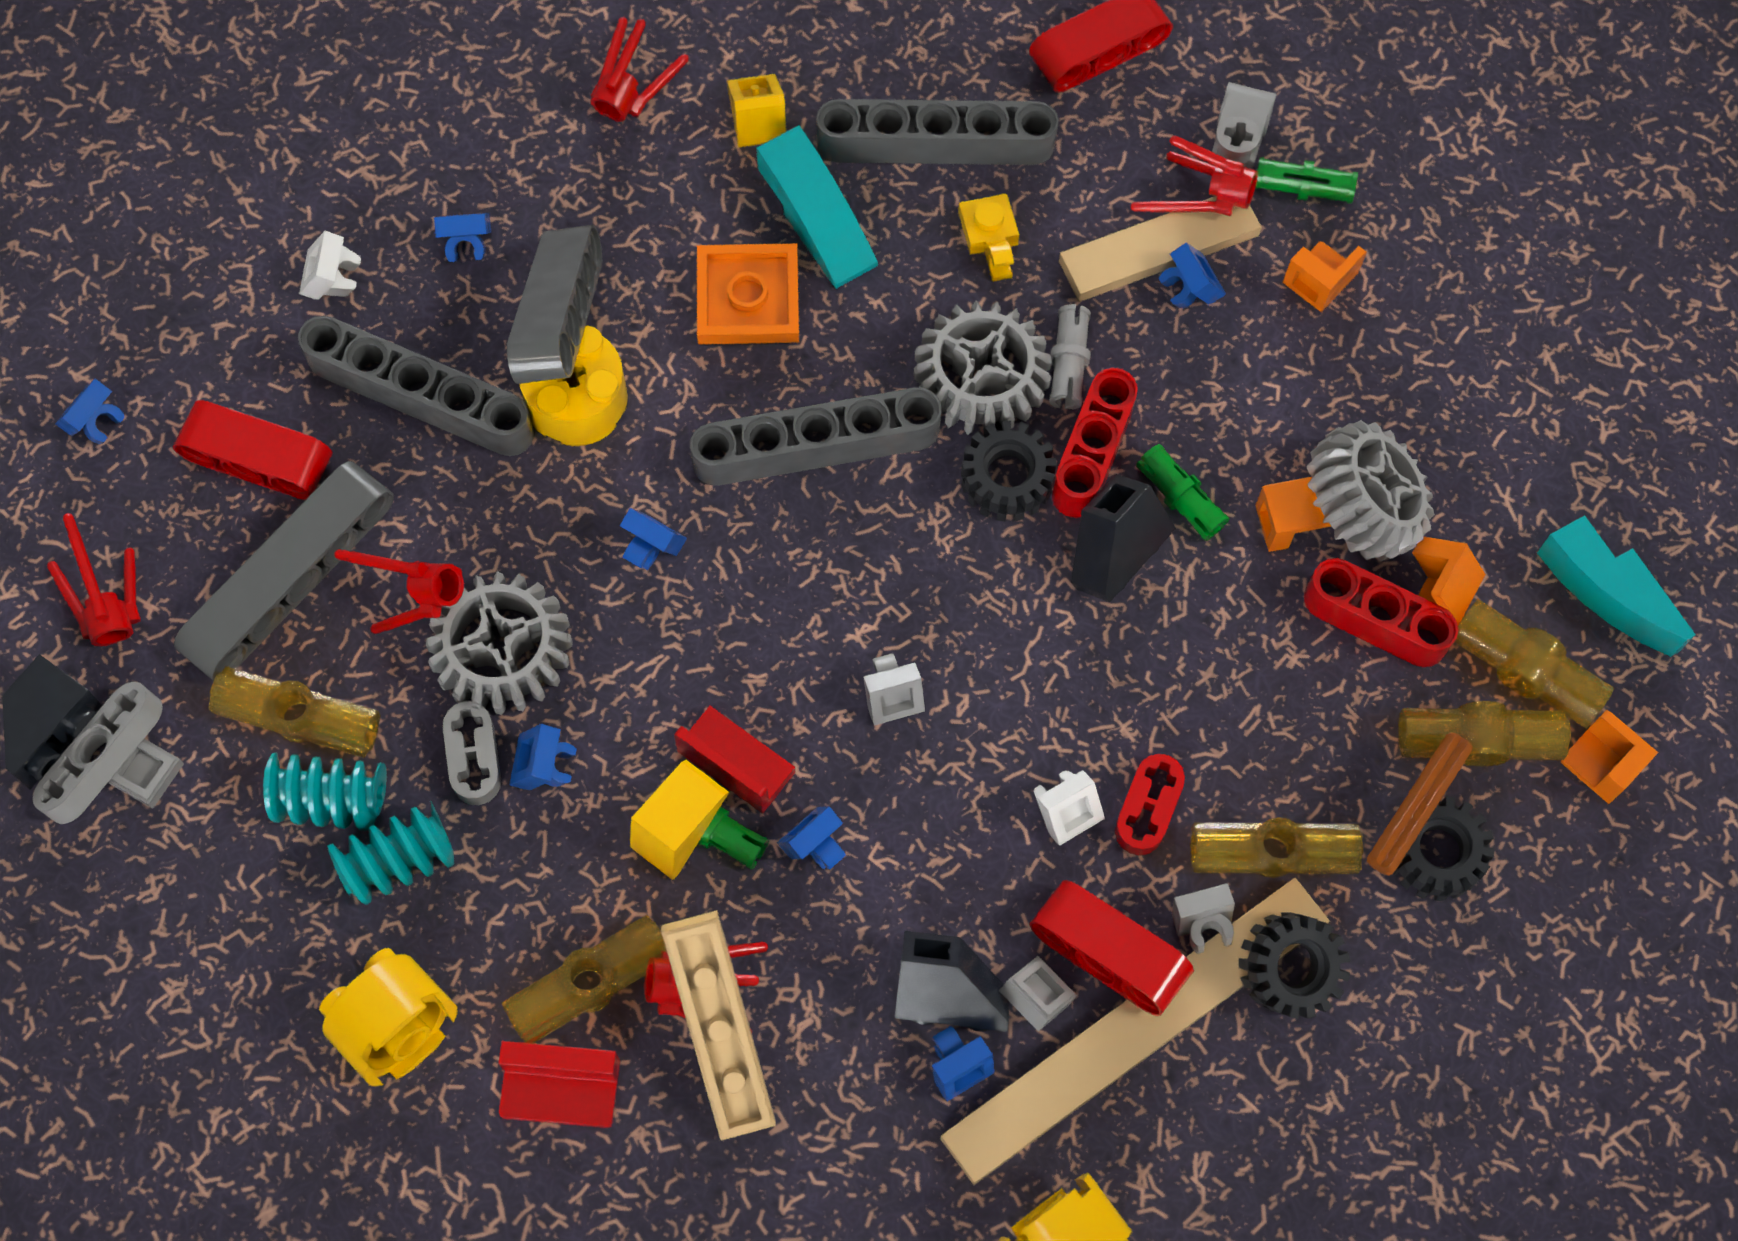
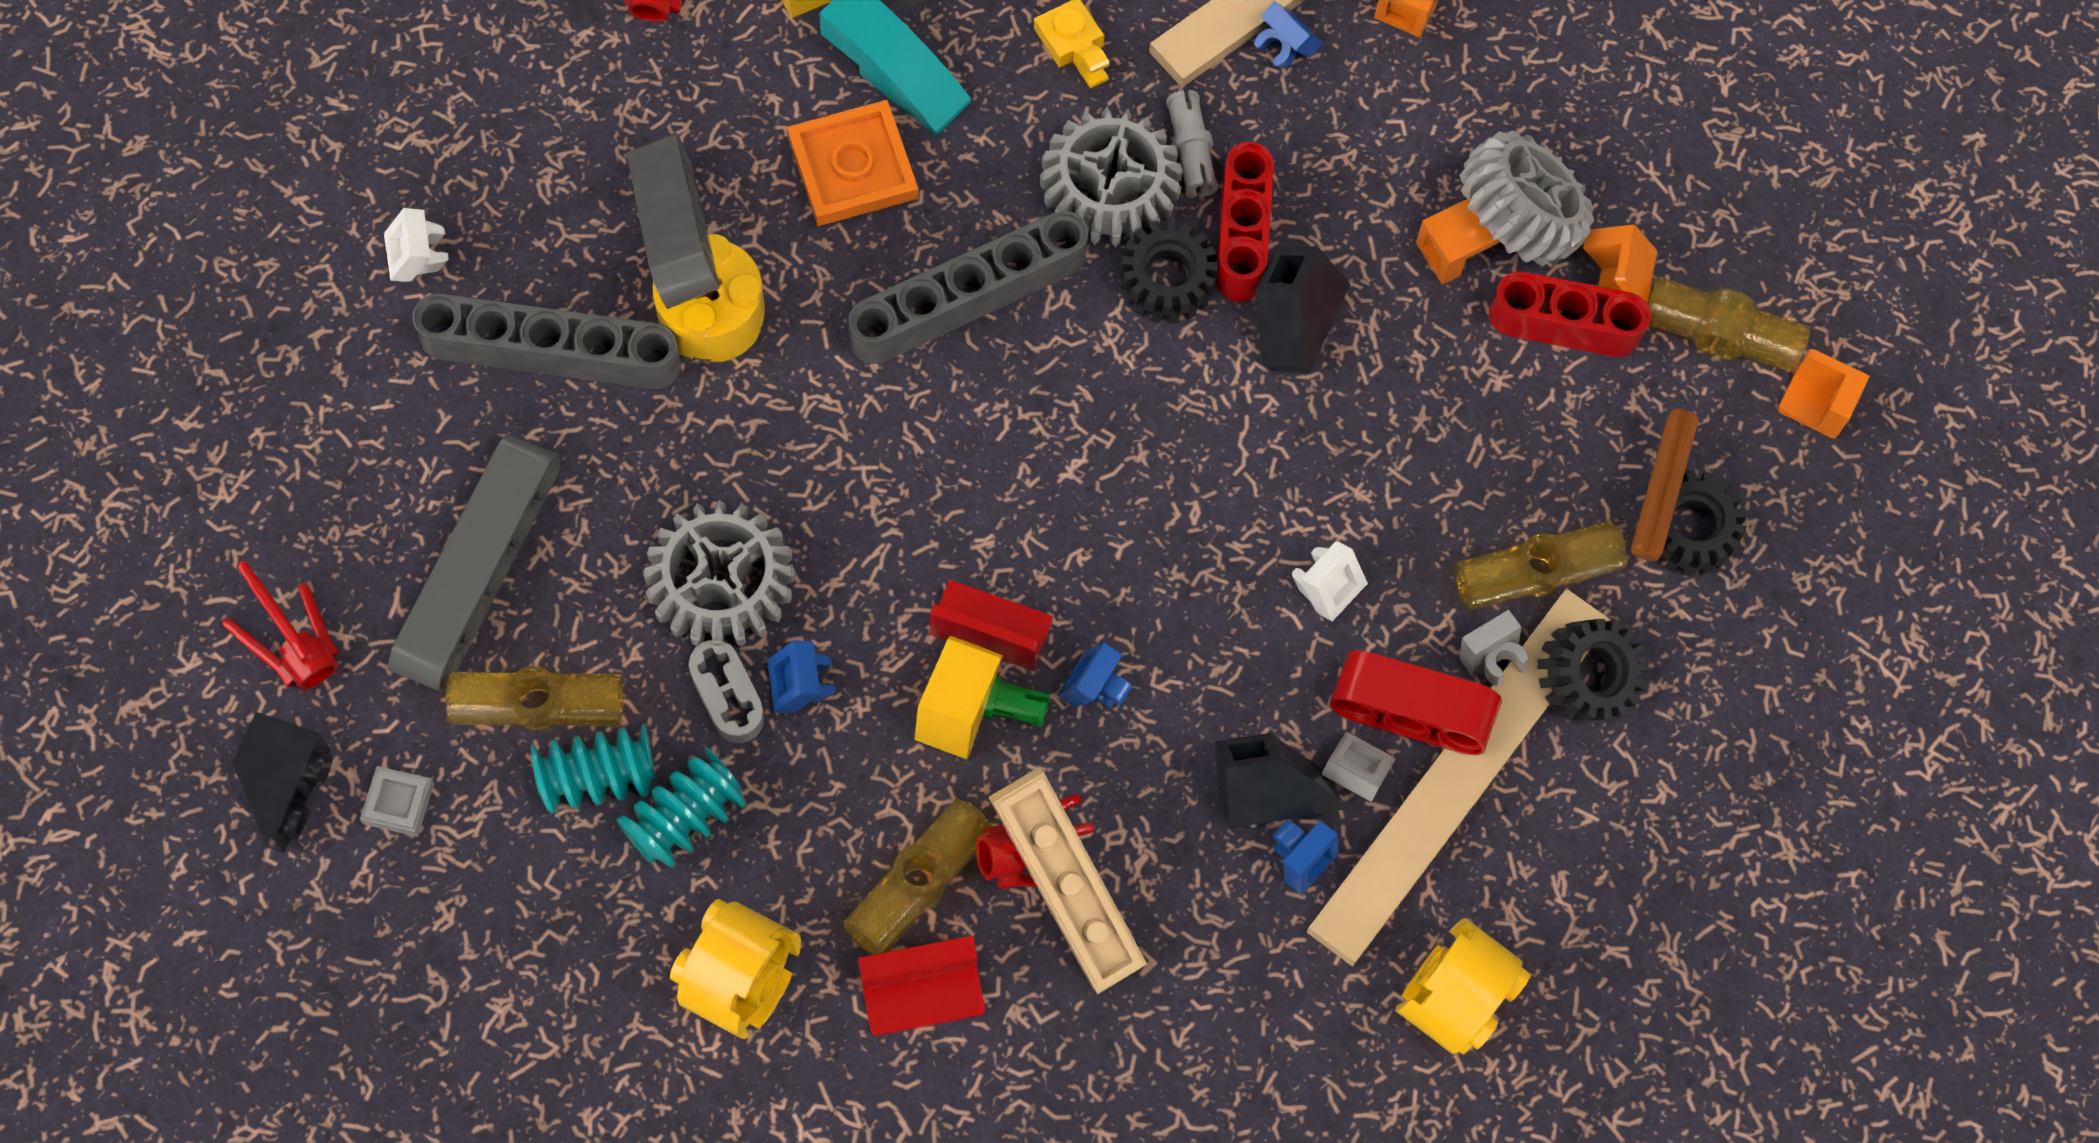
camera: 20 degrees left, 0 degrees up
(64, 794) = (352, 817): light grey beam -> none
(85, 410) = (209, 456): blue tile -> none
(252, 449) = (399, 450): red beam -> none
(427, 583) = (633, 534): red plant -> none
(463, 228) = (540, 170): blue tile -> none
(649, 539) = (836, 430): blue tile -> none
(893, 690) = (1126, 515): light grey tile -> none
(1161, 809) = (1419, 558): red beam -> none
(1182, 492) = (1343, 248): green pin -> none
(1490, 729) = (1712, 397): clear yellow piece -> none
(1615, 588) = (1781, 231): teal slope -> none

